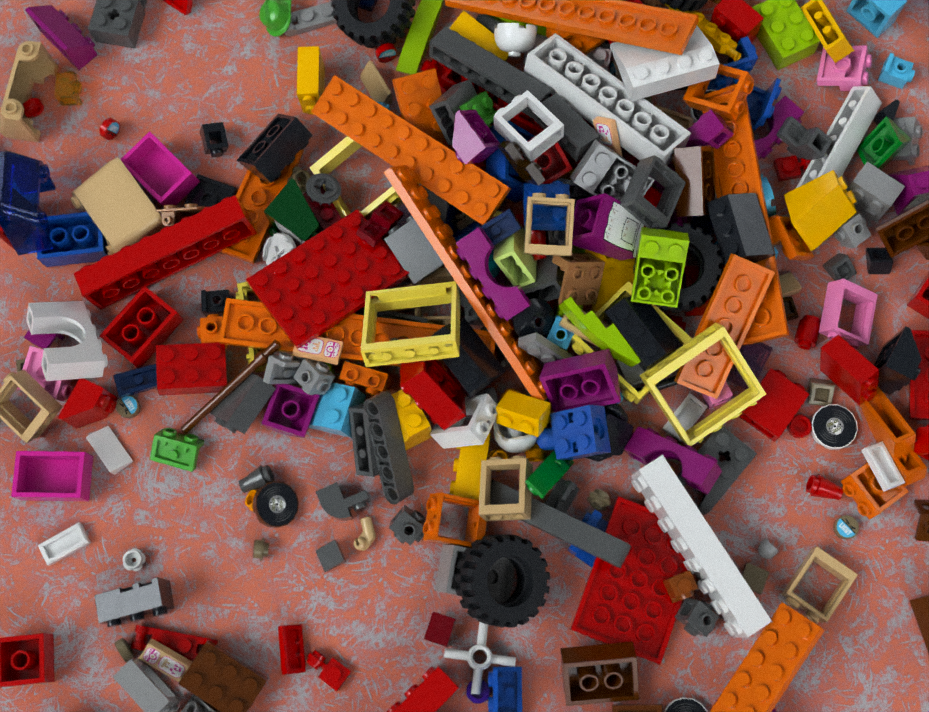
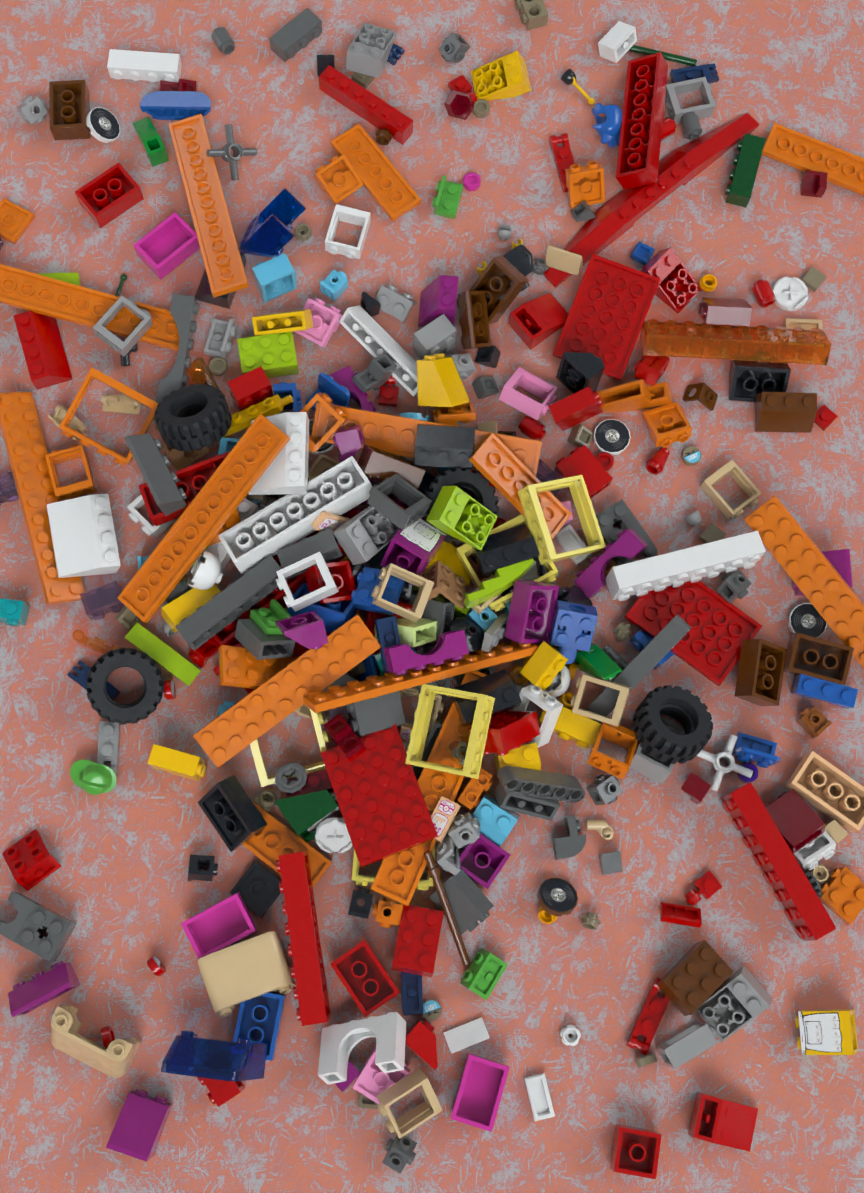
camera: 85 degrees left, 0 degrees up
(68, 89) = (100, 997): clear yellow brick -> none
(134, 602) = (609, 1042): wedge -> none
(165, 660) = (664, 1025): tile -> none
(173, 215) = (269, 918): medium nougat hinge -> none
(257, 478) = (529, 906): dark grey cone -> none
(375, 84) = (198, 707): tan slope -> none
(527, 170) = (341, 597): dark brown plate -> none
(680, 586) = (709, 590): dark orange brick -> none
(883, 144) = (398, 318): green slope -> none
(883, 466) = (654, 412): white tile -> none

